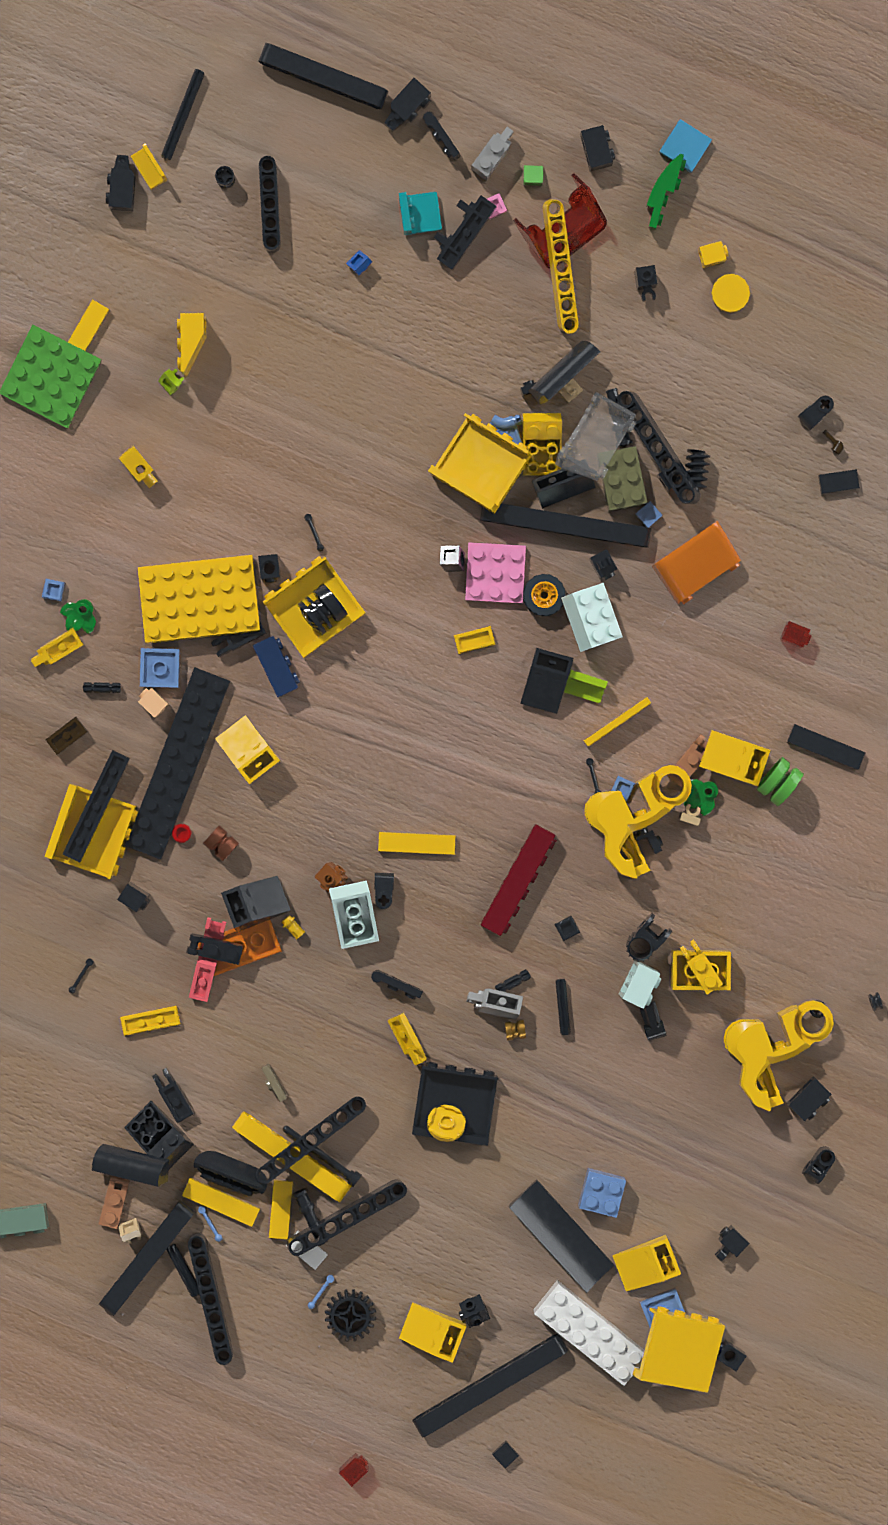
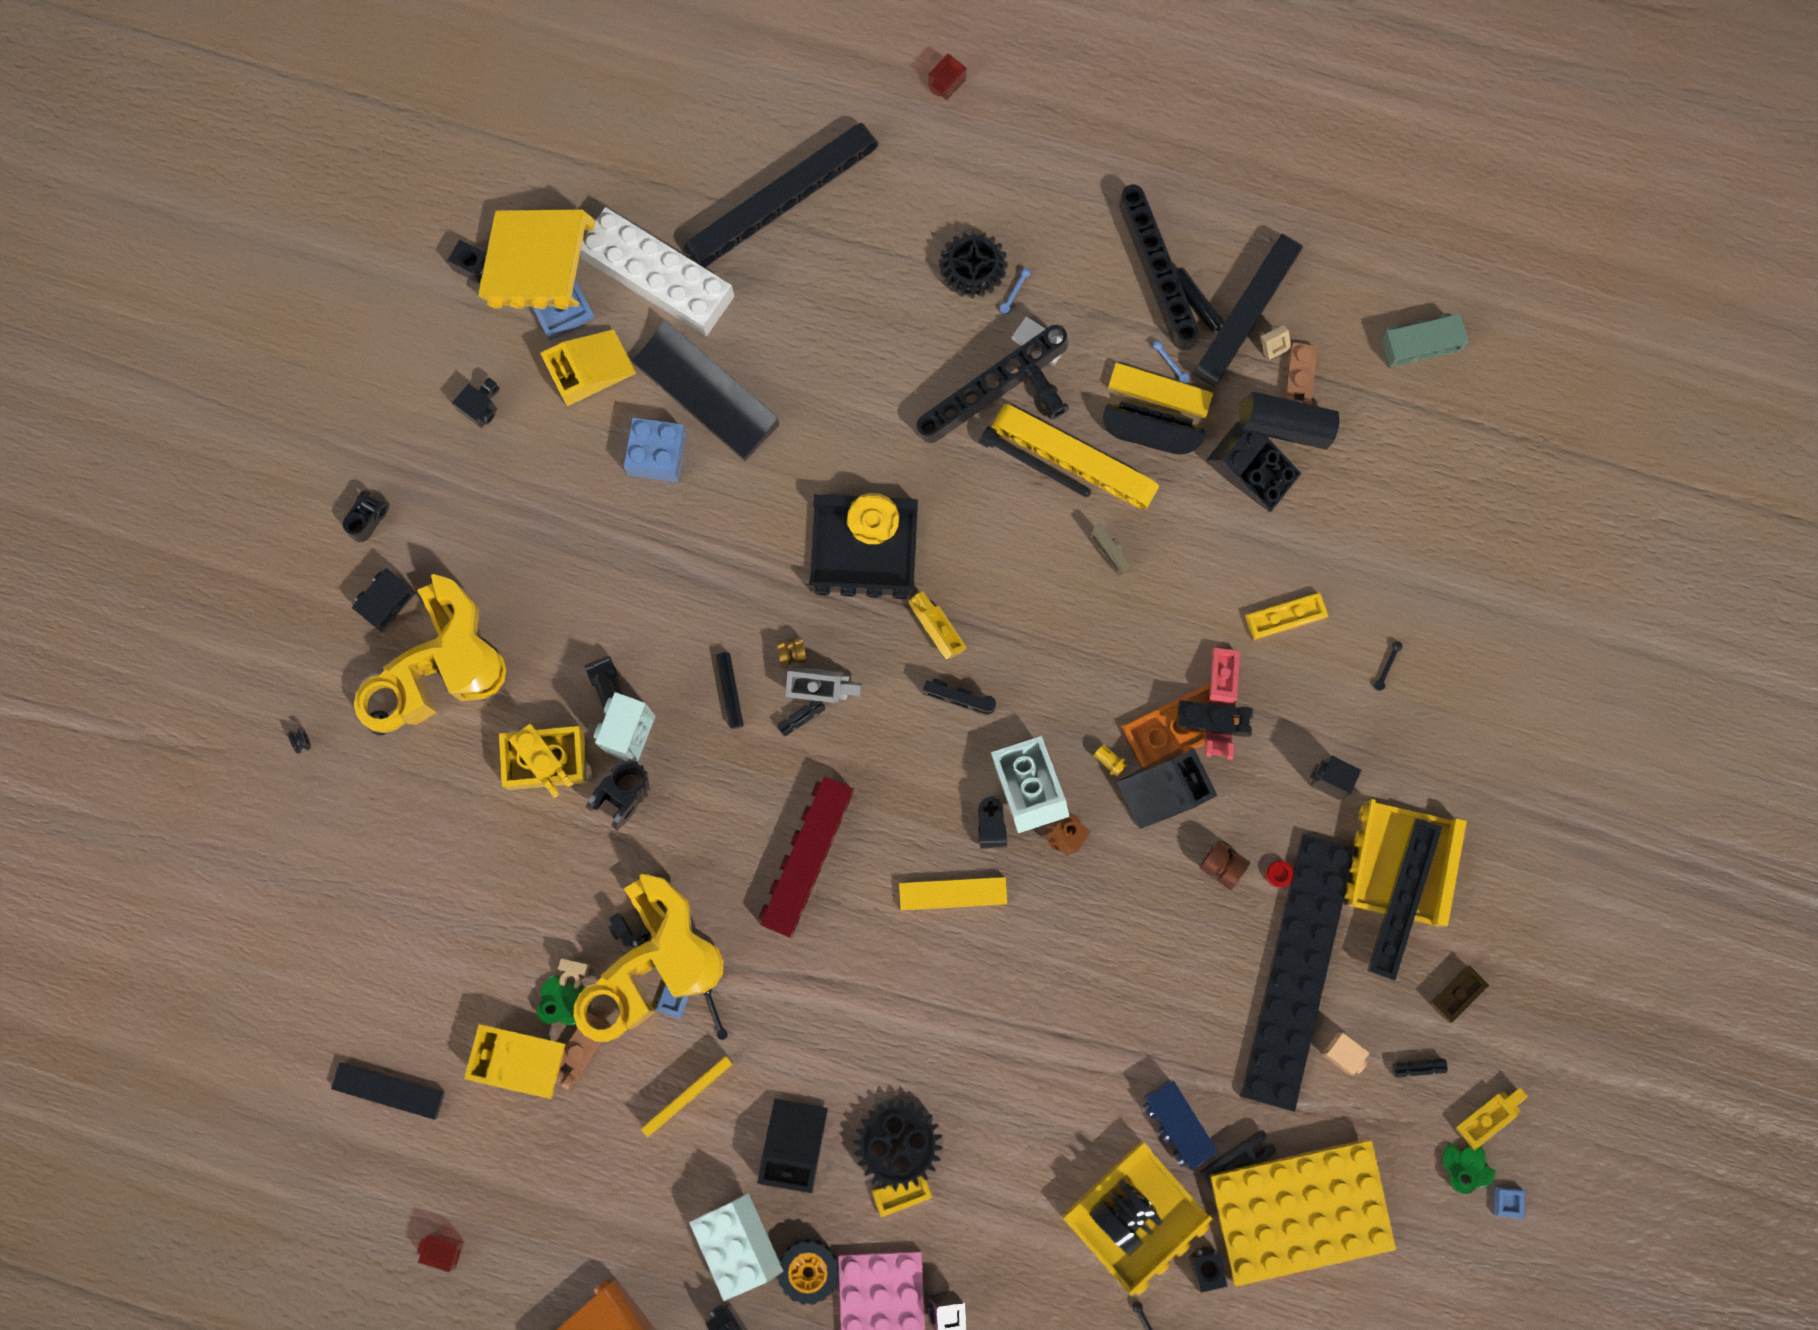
camera: 175 degrees right, 10 degrees down
(159, 667) = (1343, 1105): medium blue plate -> none
(173, 1097) = (1242, 518): black hinge -> none
(247, 749) = (1204, 999): yellow slope -> none
(280, 1209) = (1080, 389): yellow tile -> none
(319, 1136) = (1057, 464): black beam -> none
(433, 1332) = (862, 252): yellow slope -> none
(473, 1311) = (812, 283): black brick -> none
(487, 684) = (877, 1131): none -> black gear
(505, 1454) = (753, 114): black tile -> none
(567, 928) = (733, 797): black tile -> none
(585, 686) = (737, 1142): lime panel -> none
(781, 782) = (447, 1034): bright green wheel -> none

